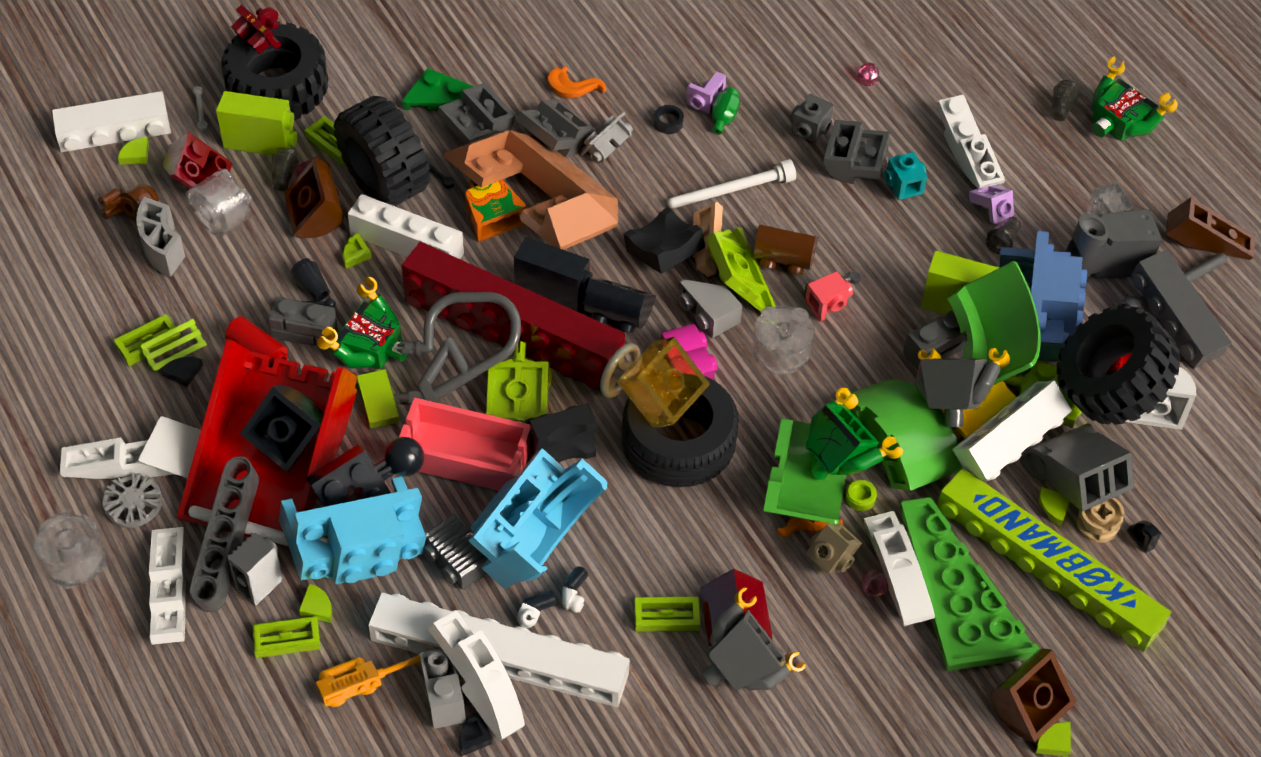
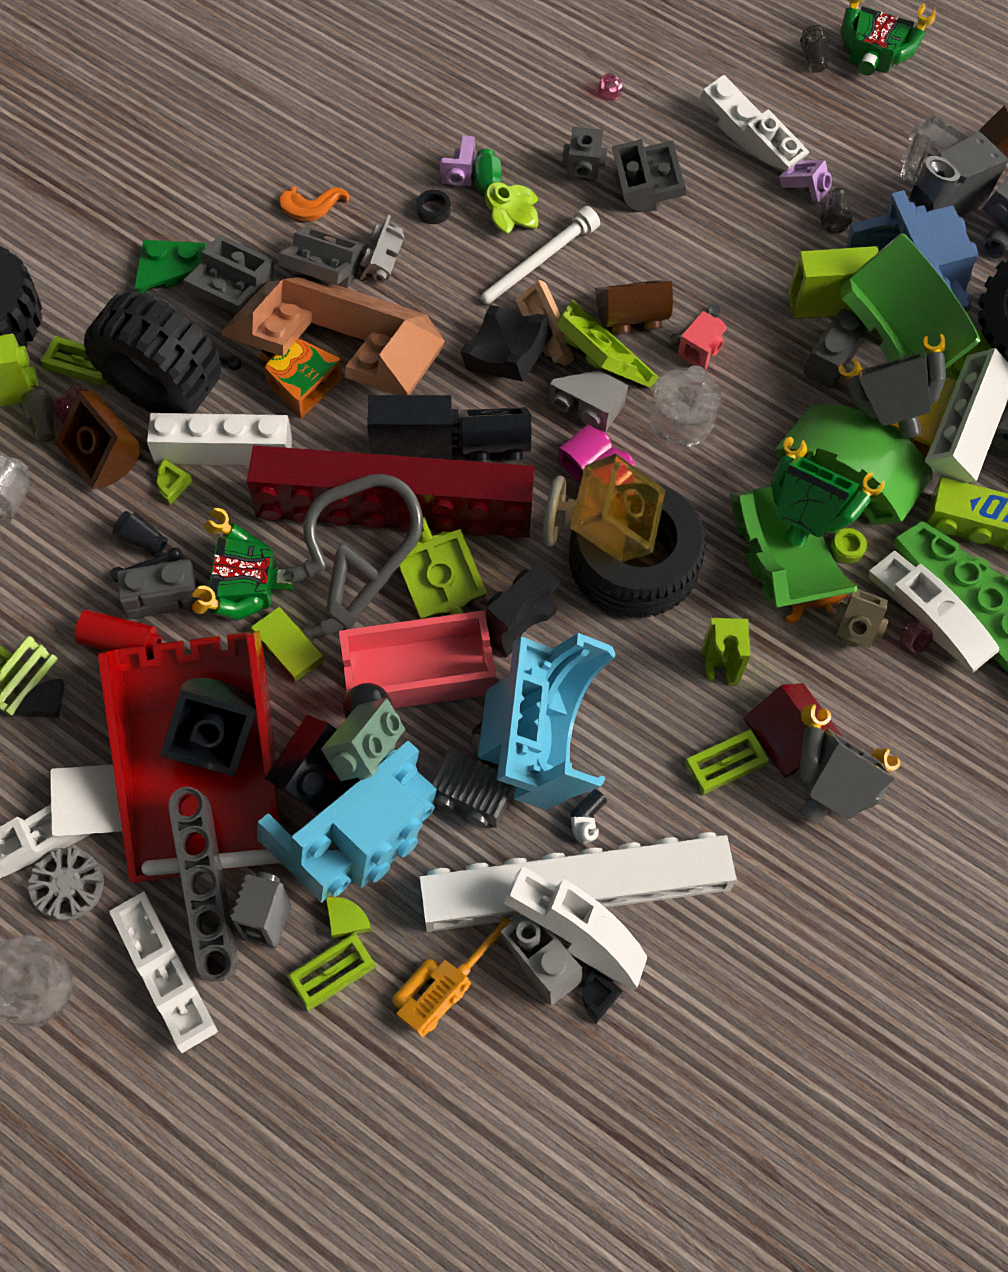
camera: 25 degrees left, 10 degrees up
(383, 471) = (363, 740): none -> sand green brick
(570, 599) = (613, 775): arm -> none
(709, 526) = (727, 646): none -> lime hinge
(733, 142) = (511, 206): none -> lime plate
(906, 175) = (711, 181): teal brick -> none

